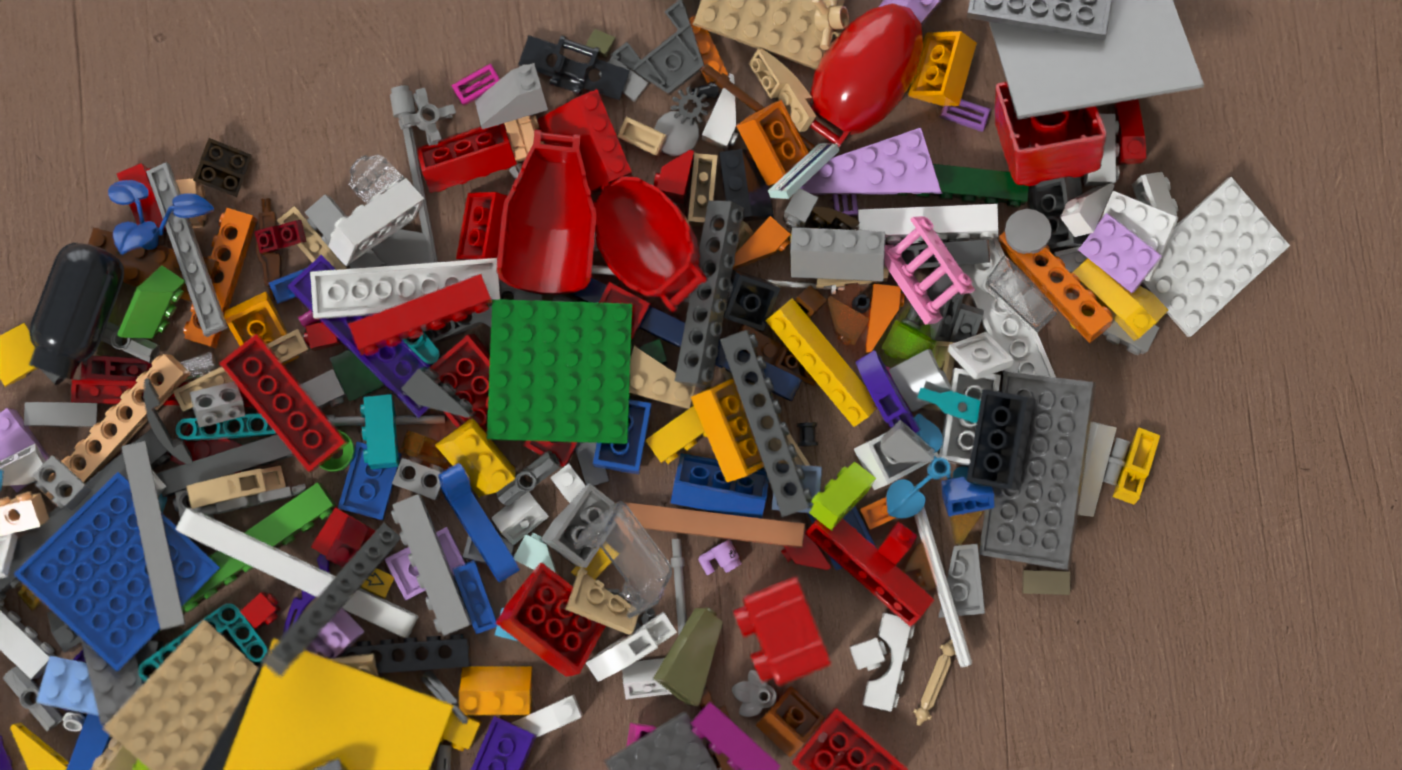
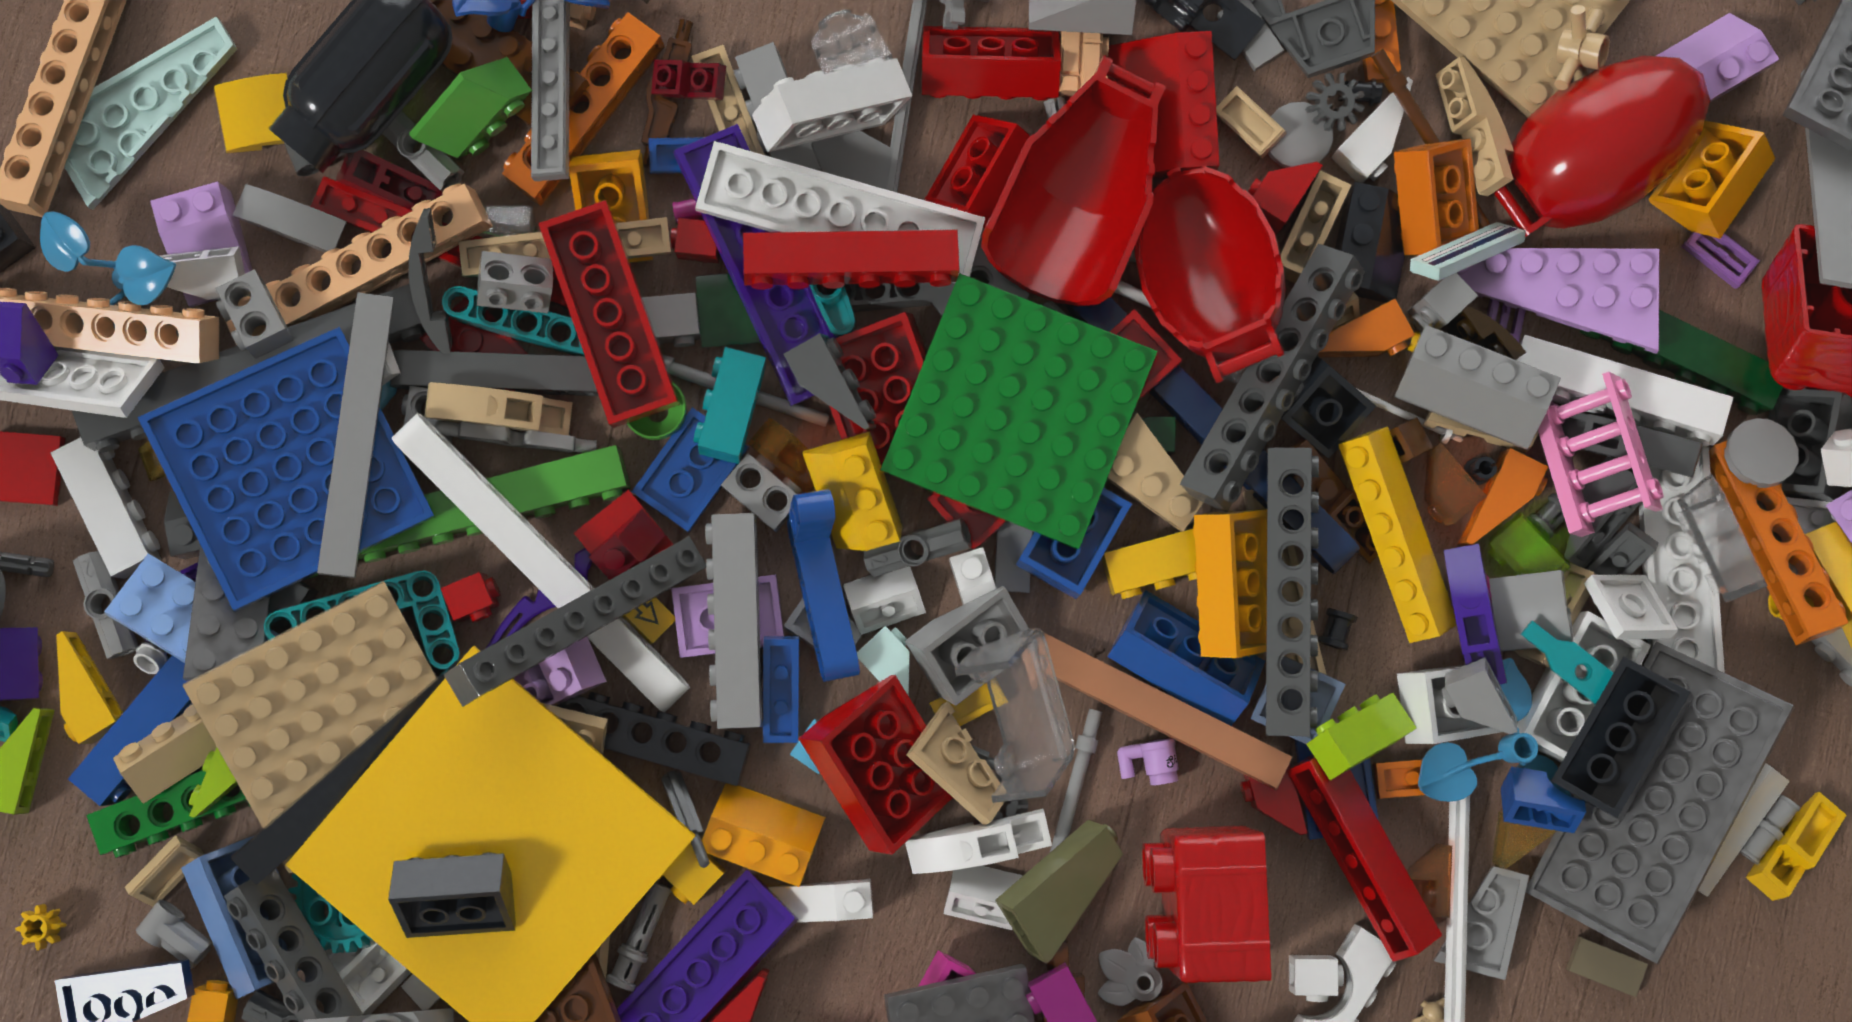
camera: 15 degrees right, 0 degrees up
(897, 543) = (1417, 832): red slope -> none

